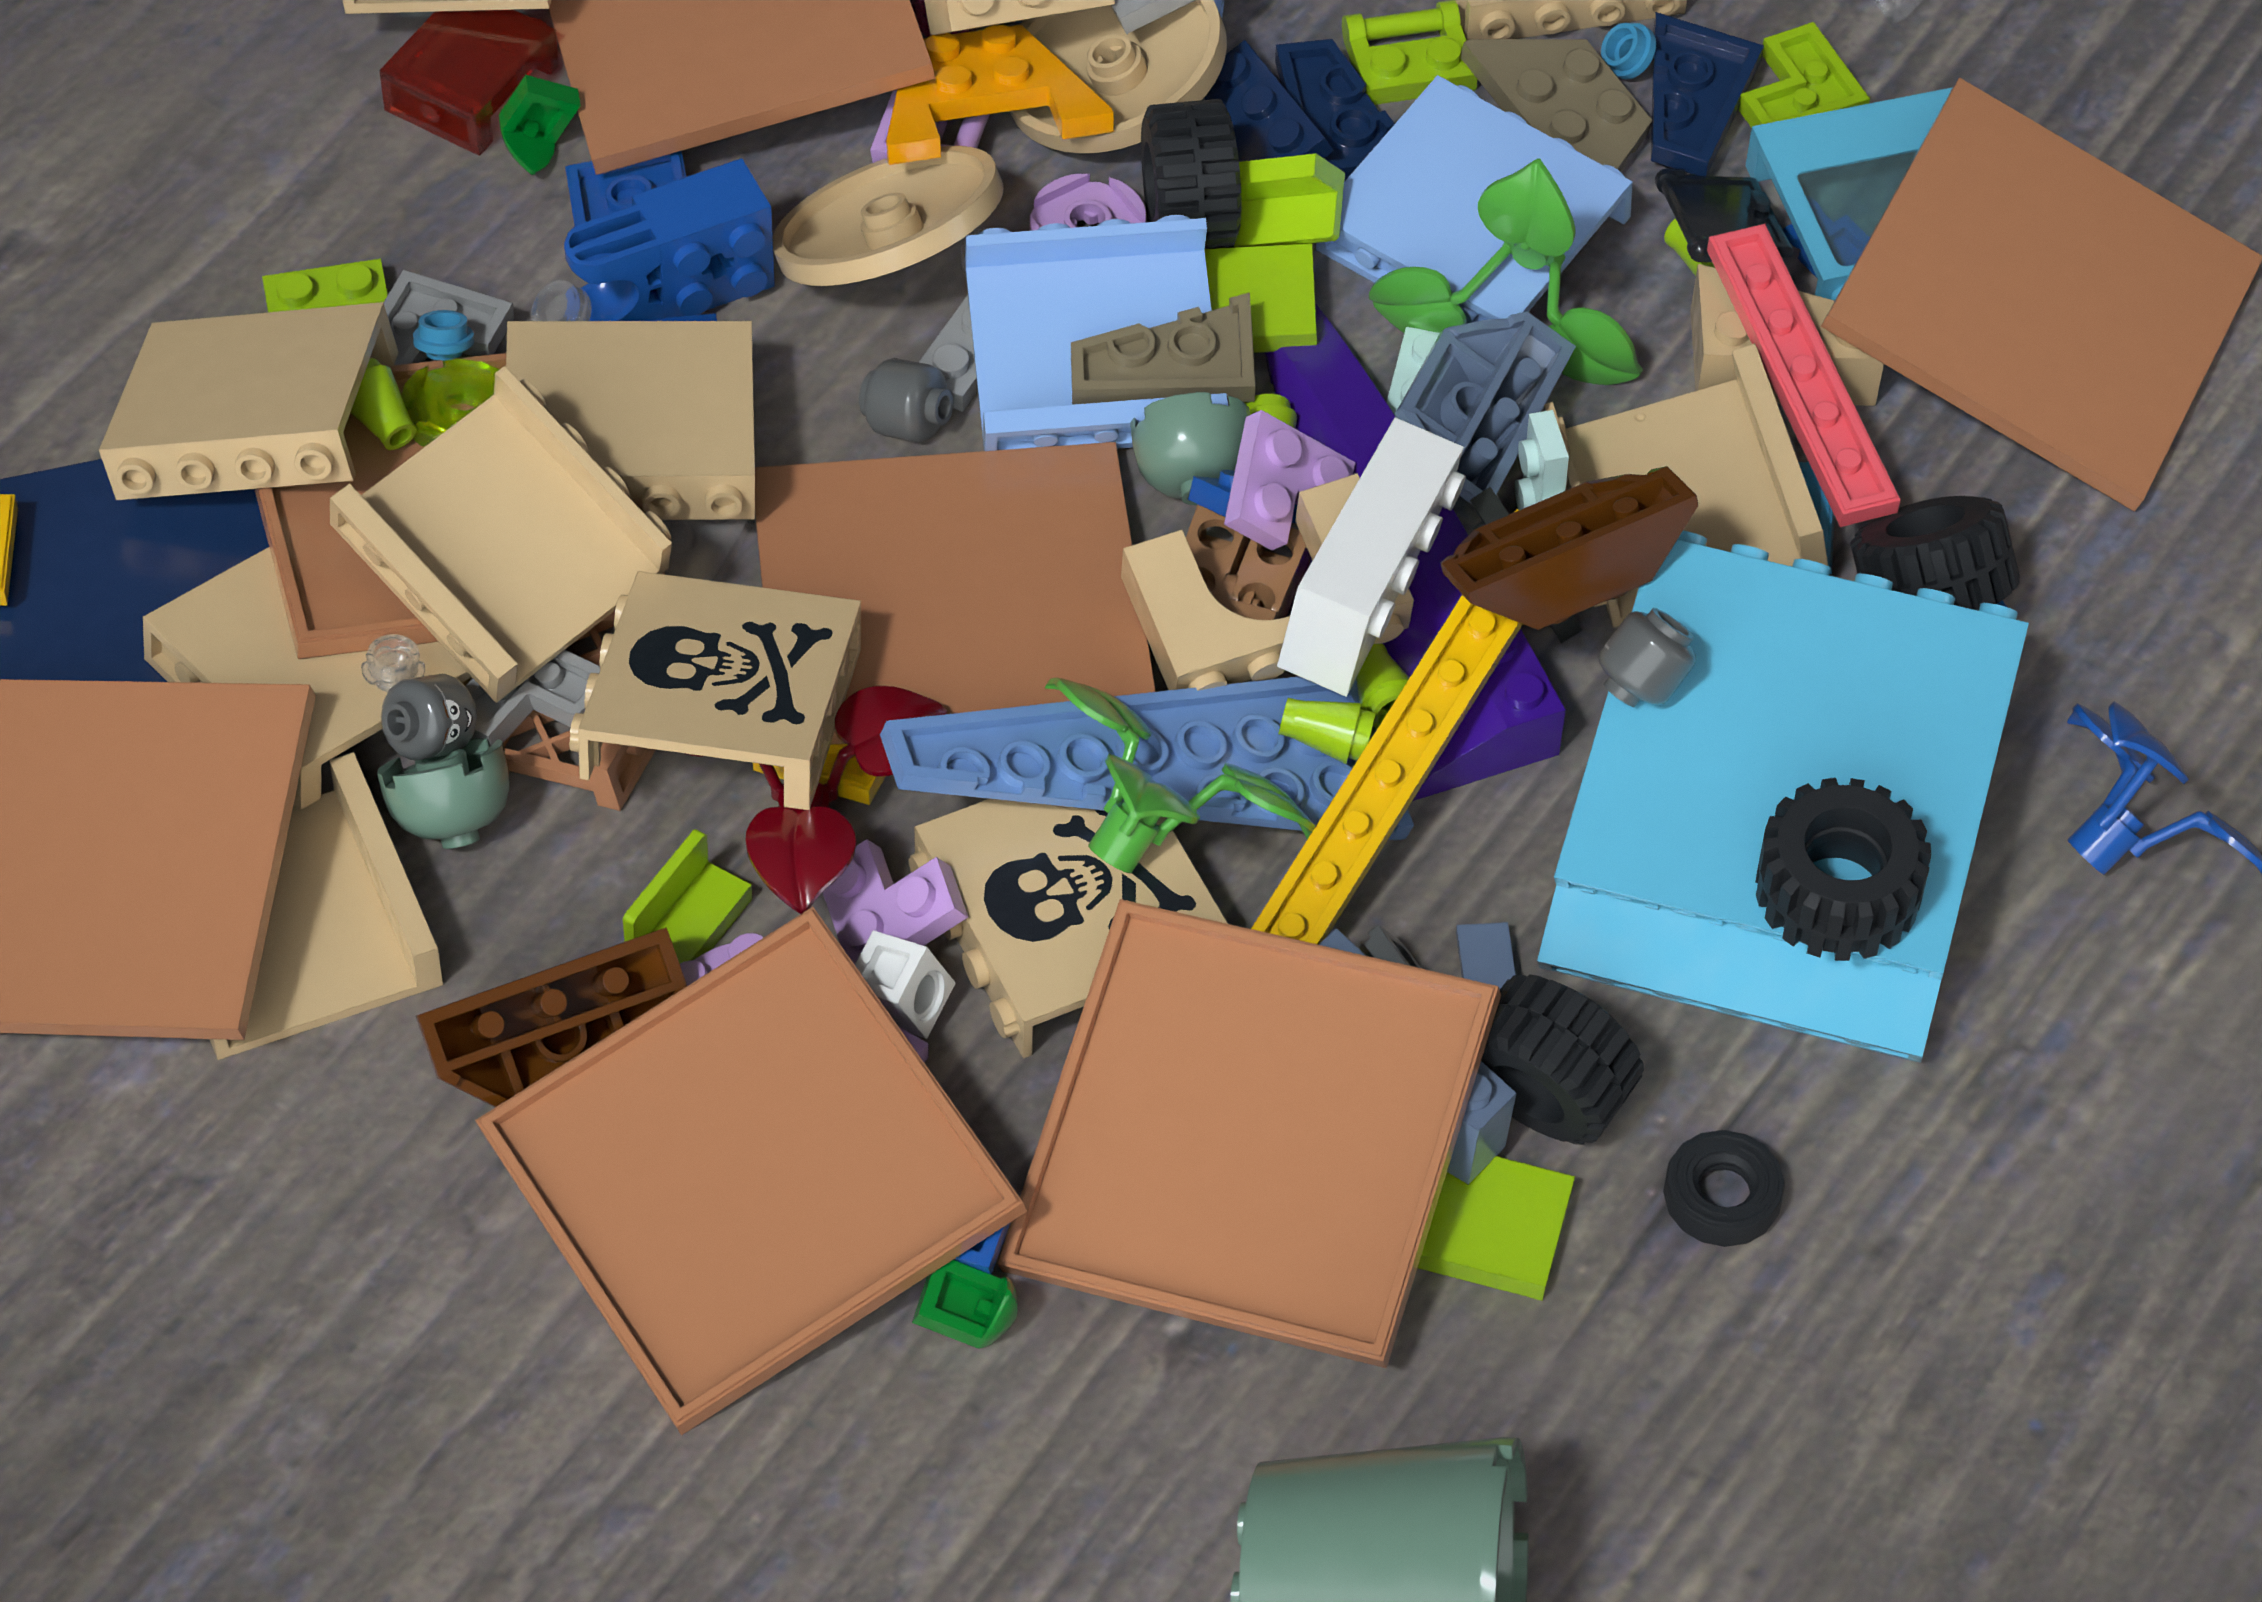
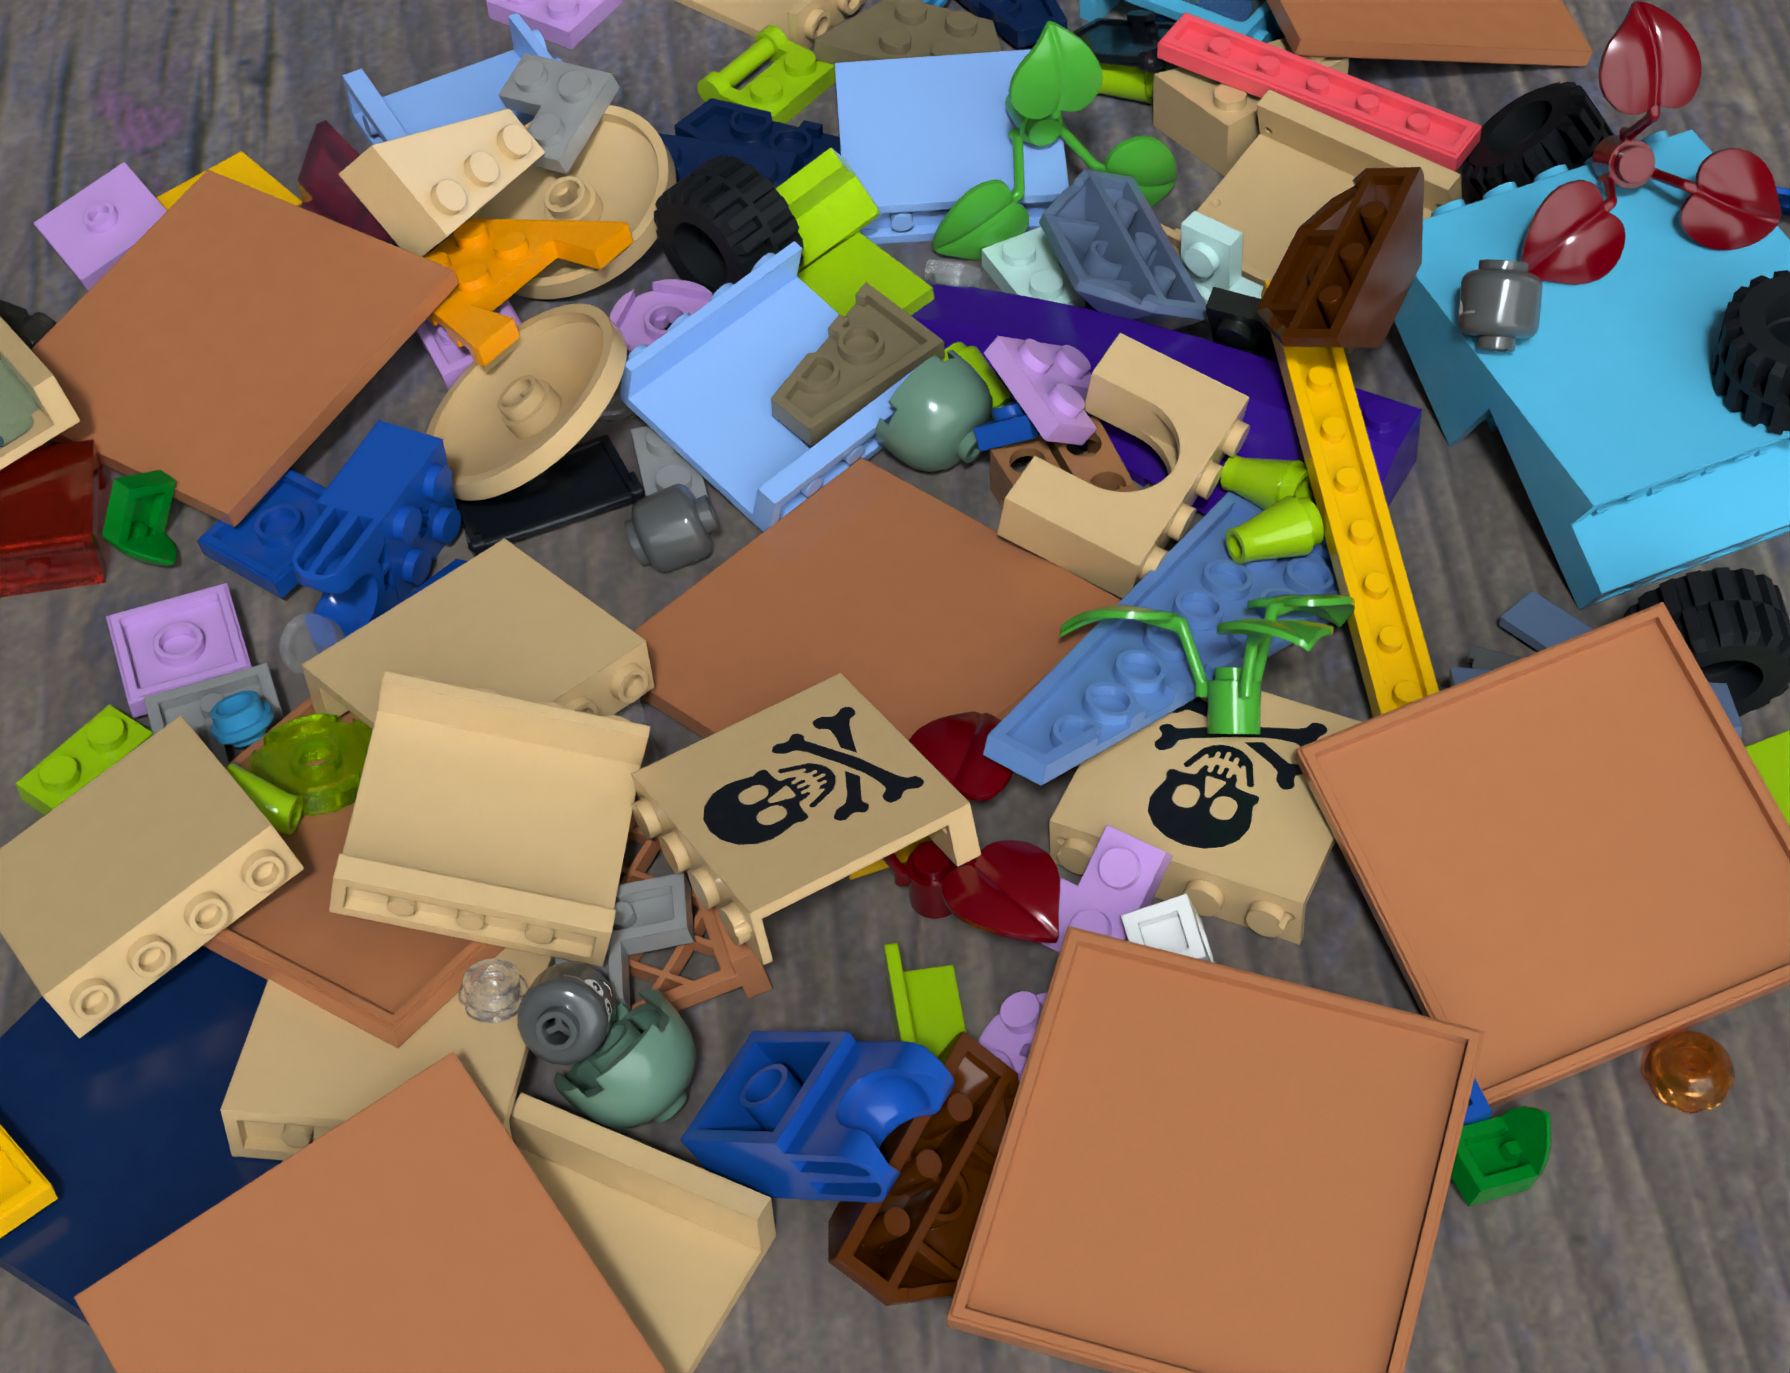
camera: 35 degrees left, 5 degrees down
(472, 243) = (177, 643): none -> lavender plate
(512, 908) = (811, 1112): none -> blue brick
(885, 316) = (575, 487): none -> black door
(1181, 1375) = (1688, 1089): none -> clear orange plate
(1352, 335) = (952, 274): none -> clear tile
(1370, 555) = (1210, 377): white wedge -> none
(1923, 536) = (1728, 208): none -> dark red plant

